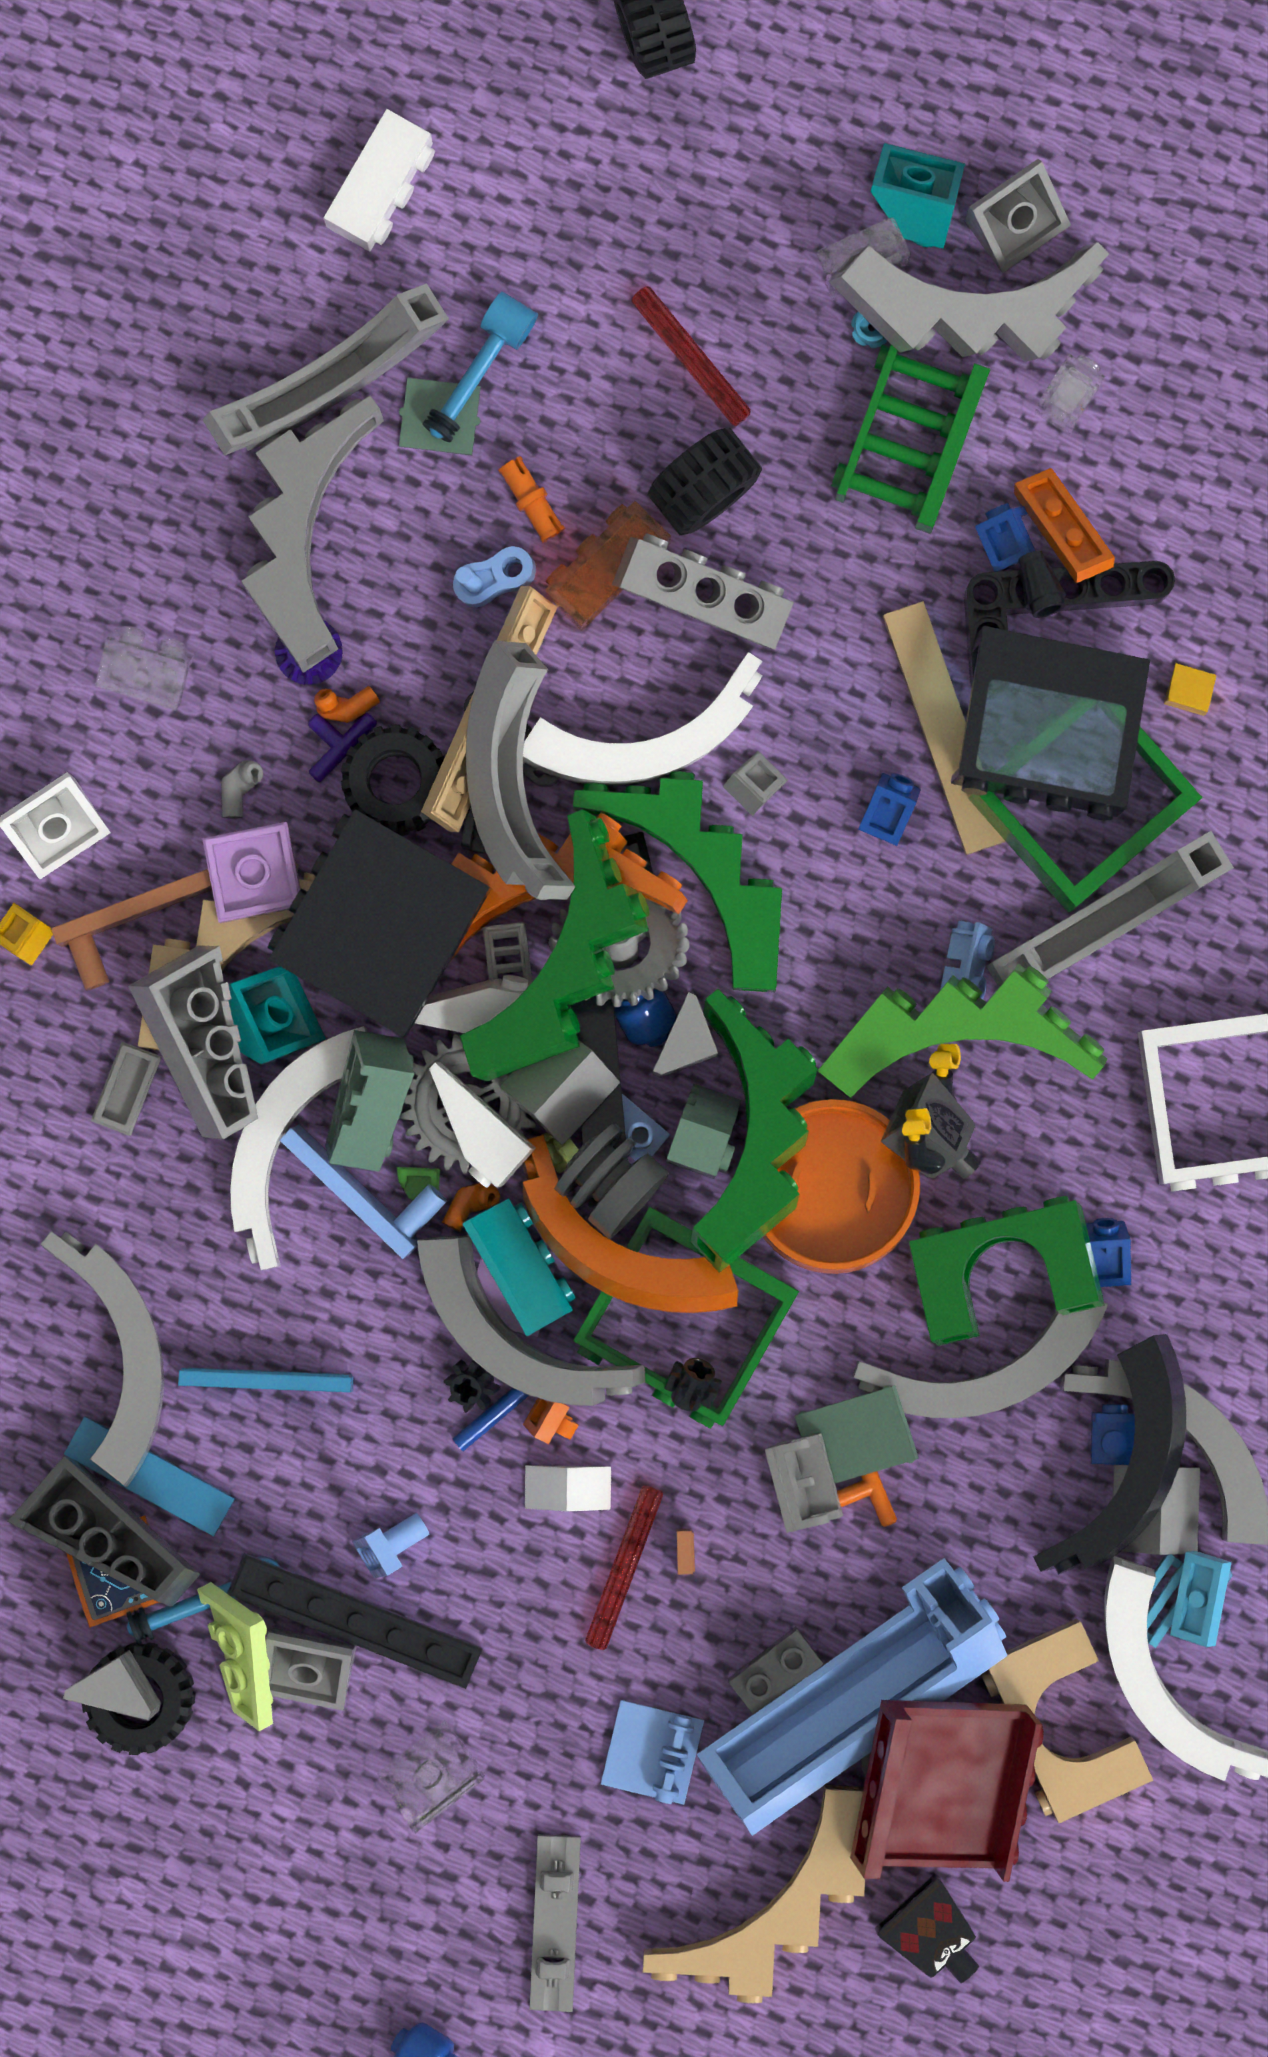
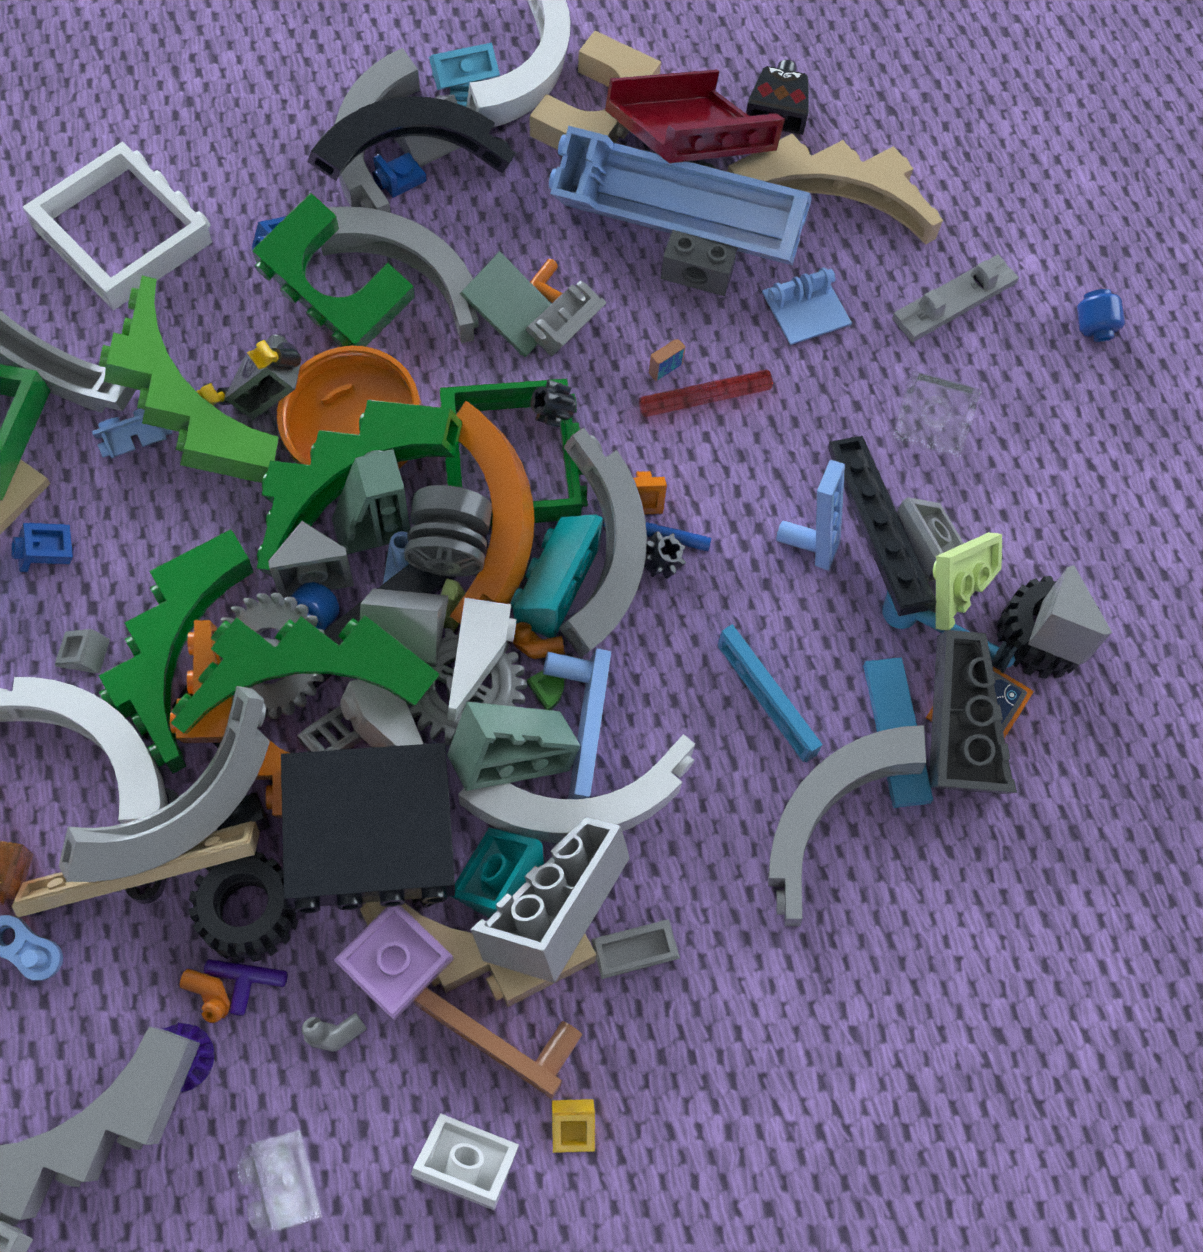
camera: 135 degrees left, 20 degrees down
(567, 1488) = (684, 457): white slope -> none

